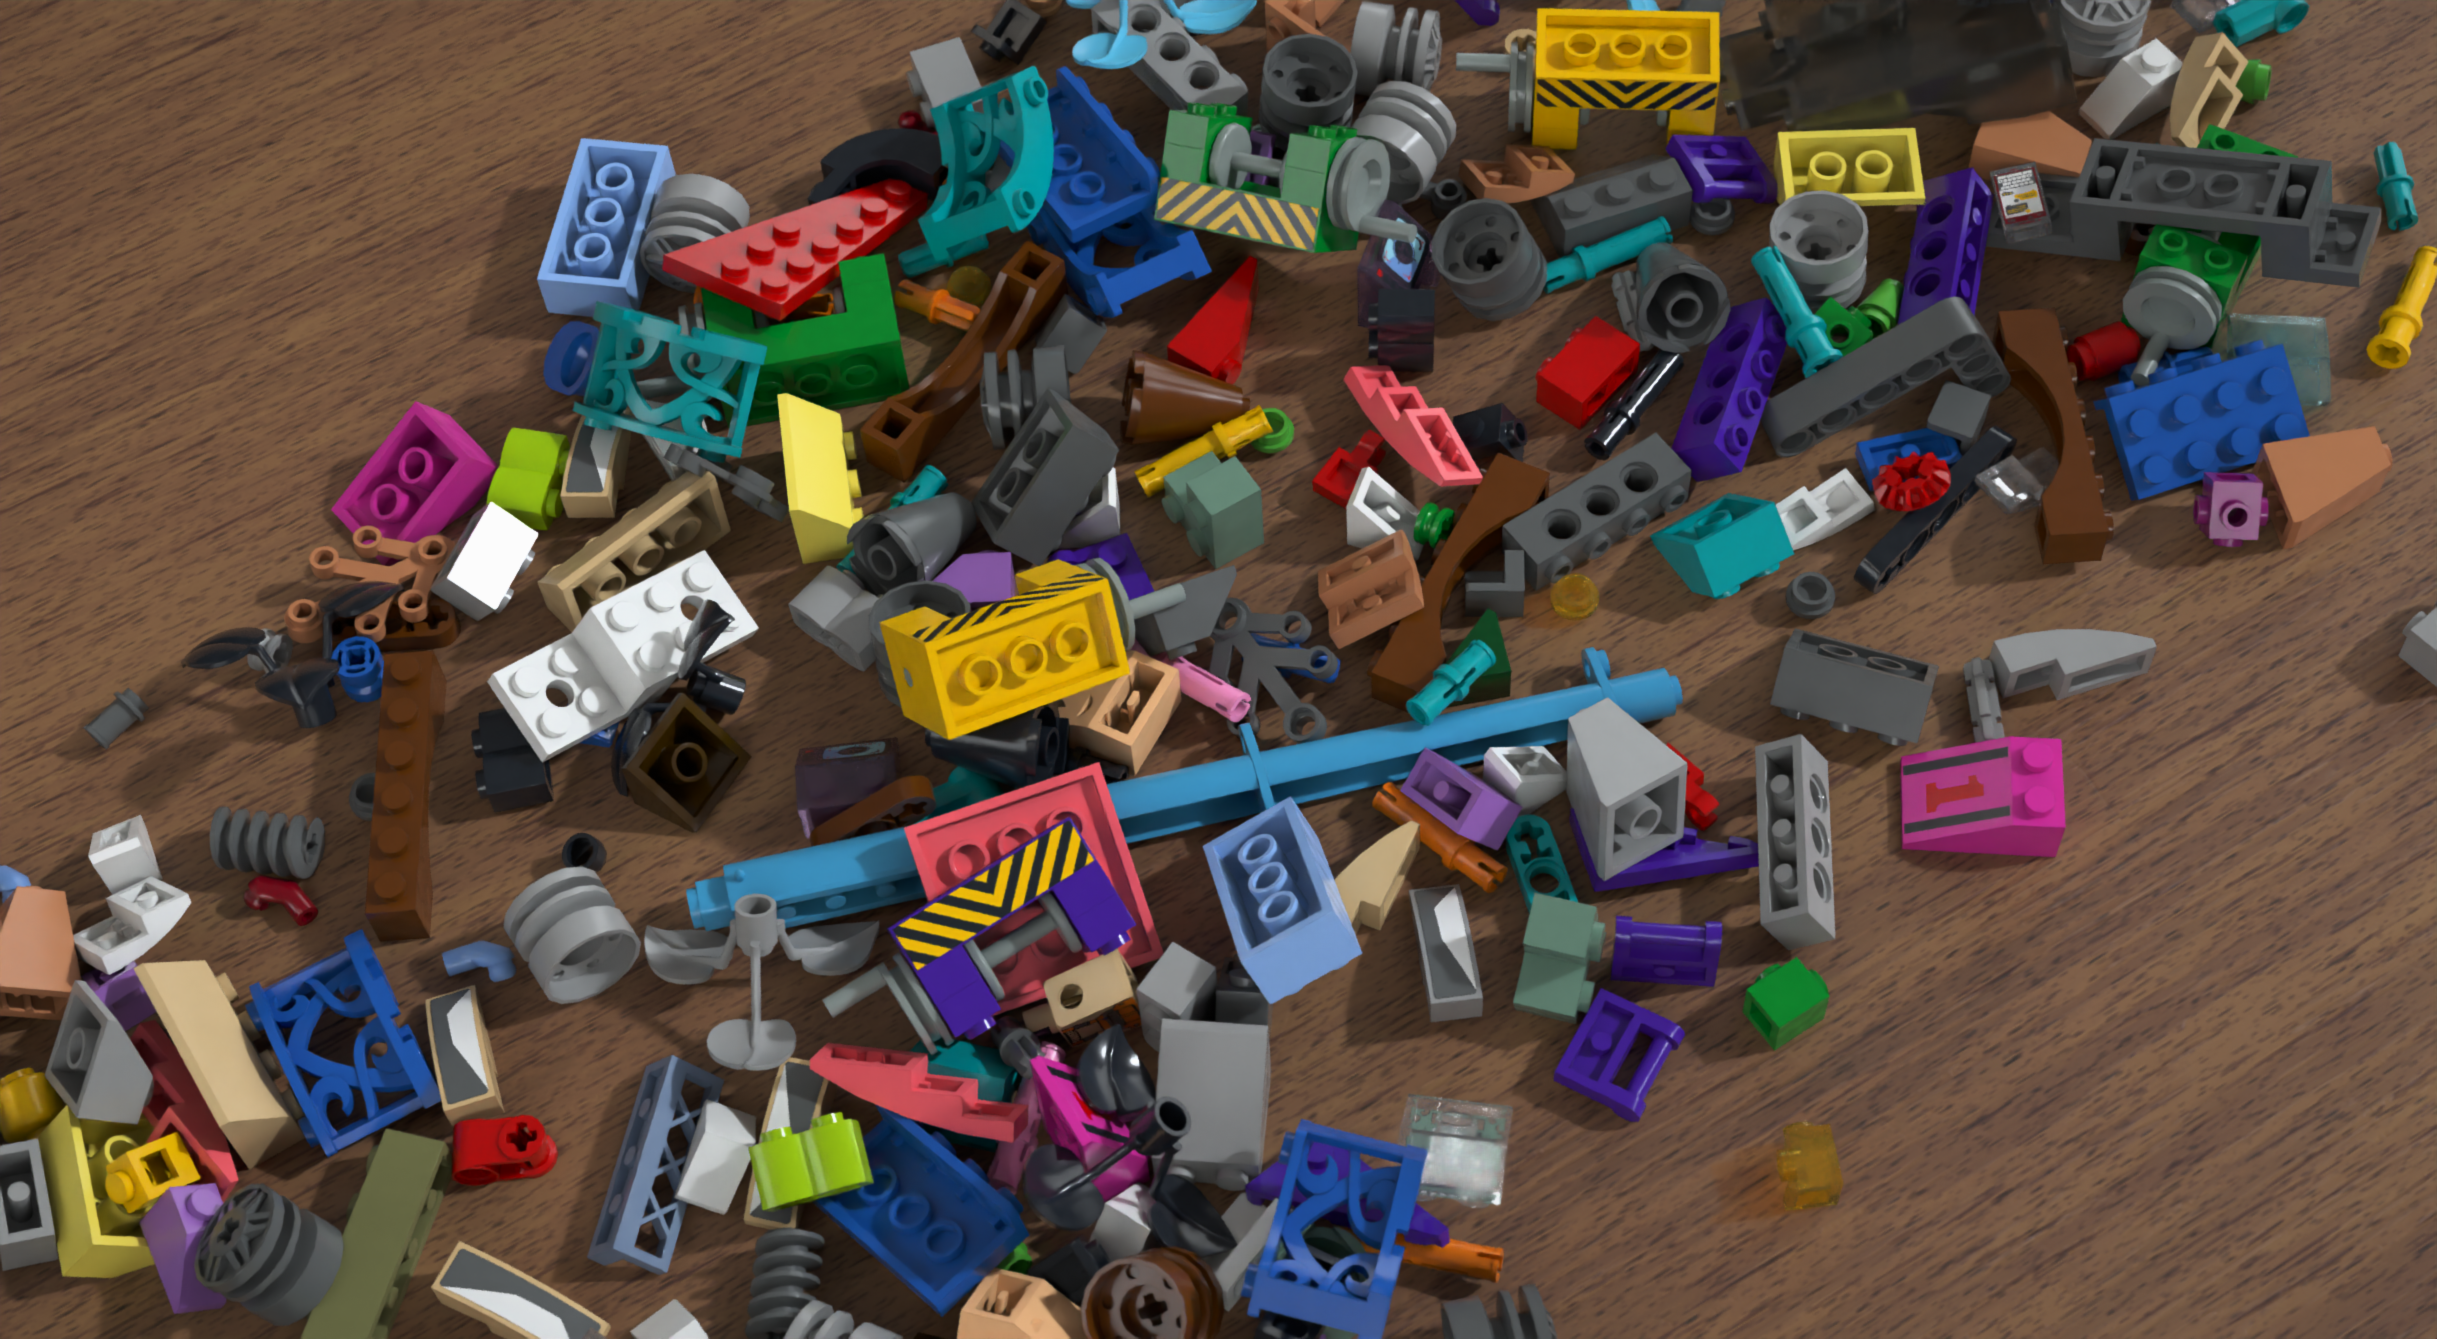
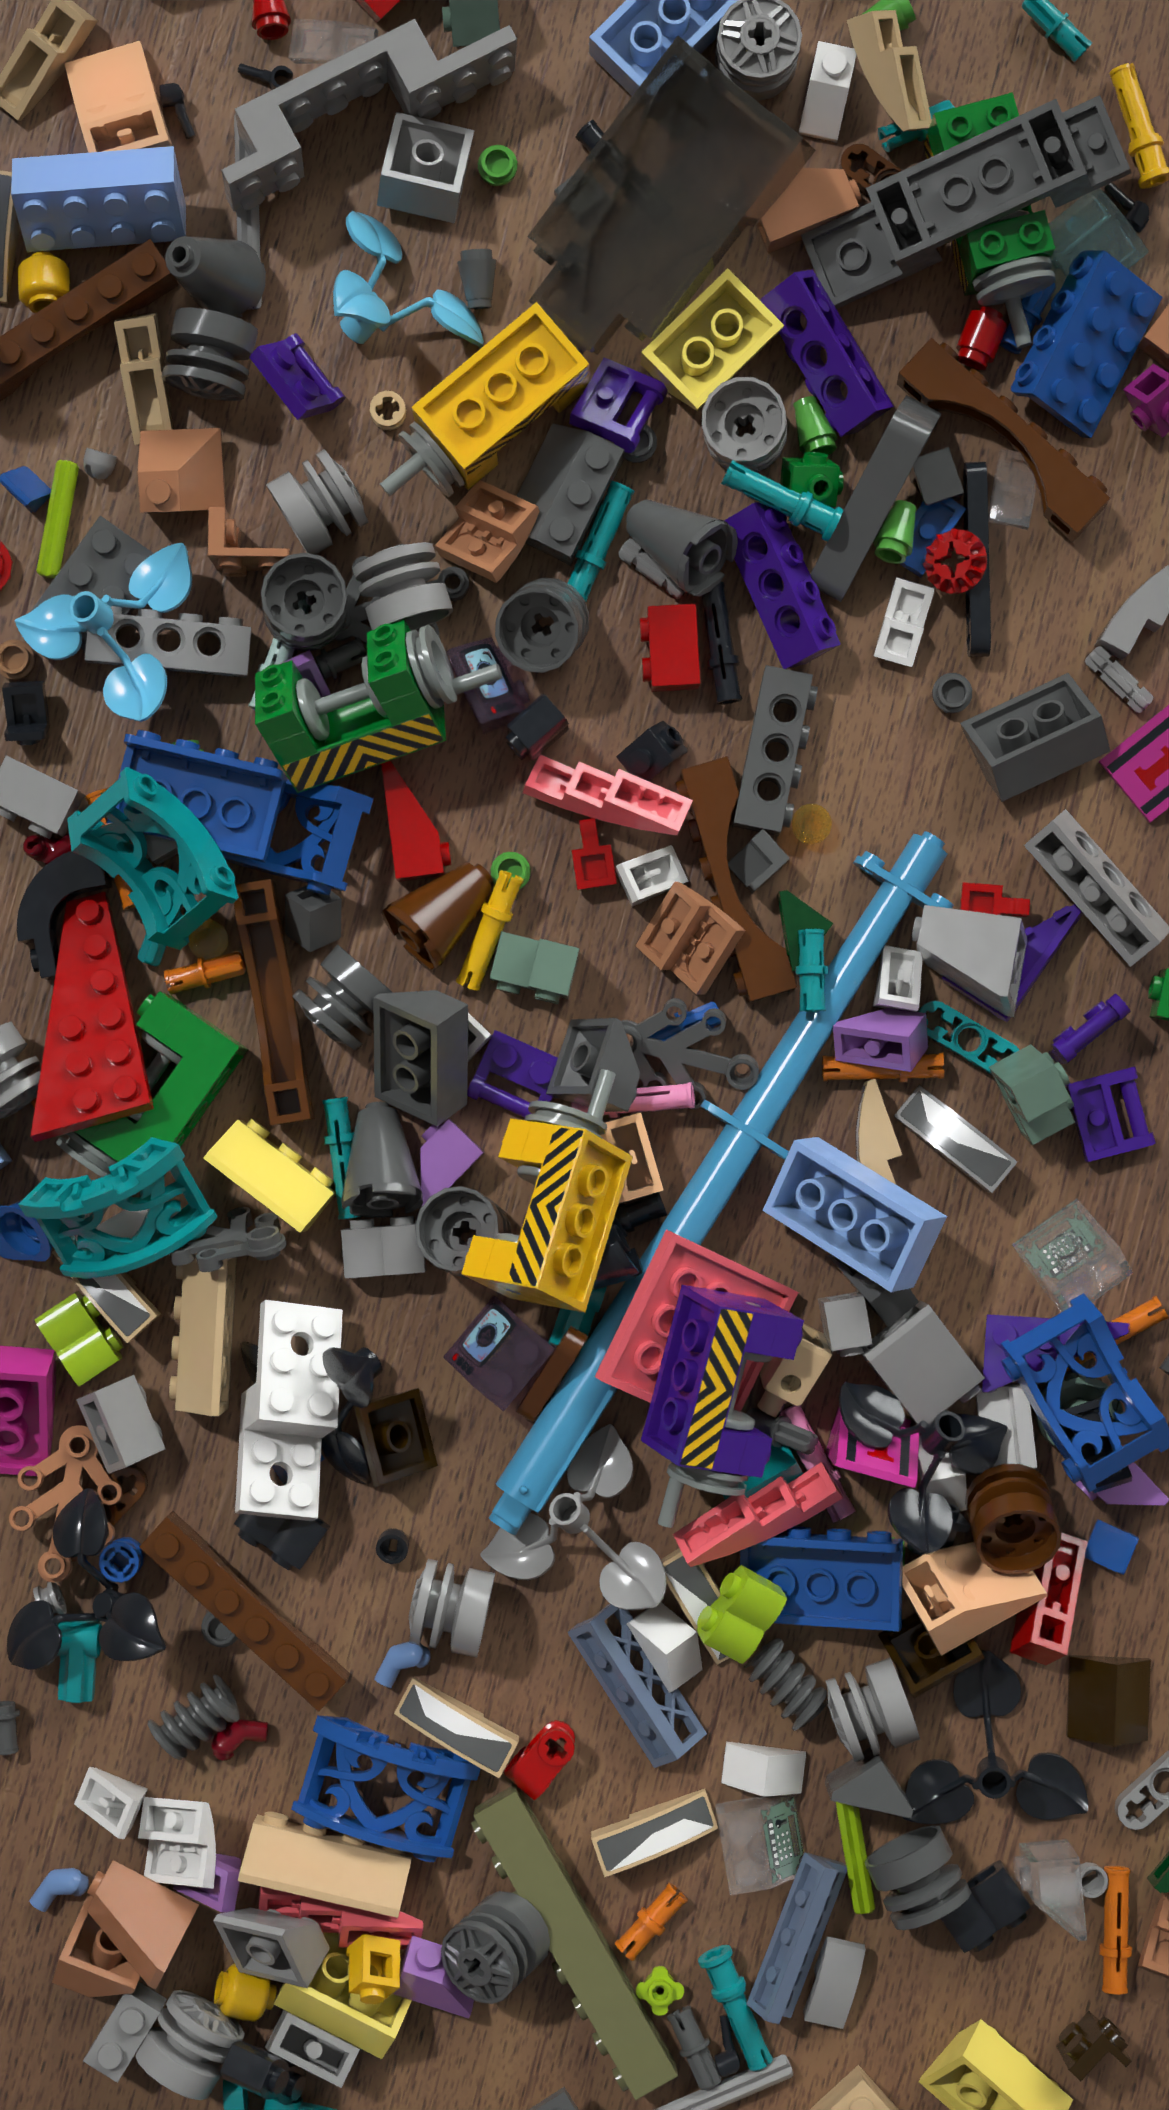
camera: 45 degrees left, 30 degrees up
(234, 716) = (78, 1660): none -> teal piece
(1433, 524) = (685, 855): green bush -> none
(1725, 544) = (869, 704): teal slope -> none
(1875, 424) = (896, 534): none -> bright green cone
(2021, 202) = (839, 265): tile -> none
(2345, 365) = (1137, 211): none -> black hand

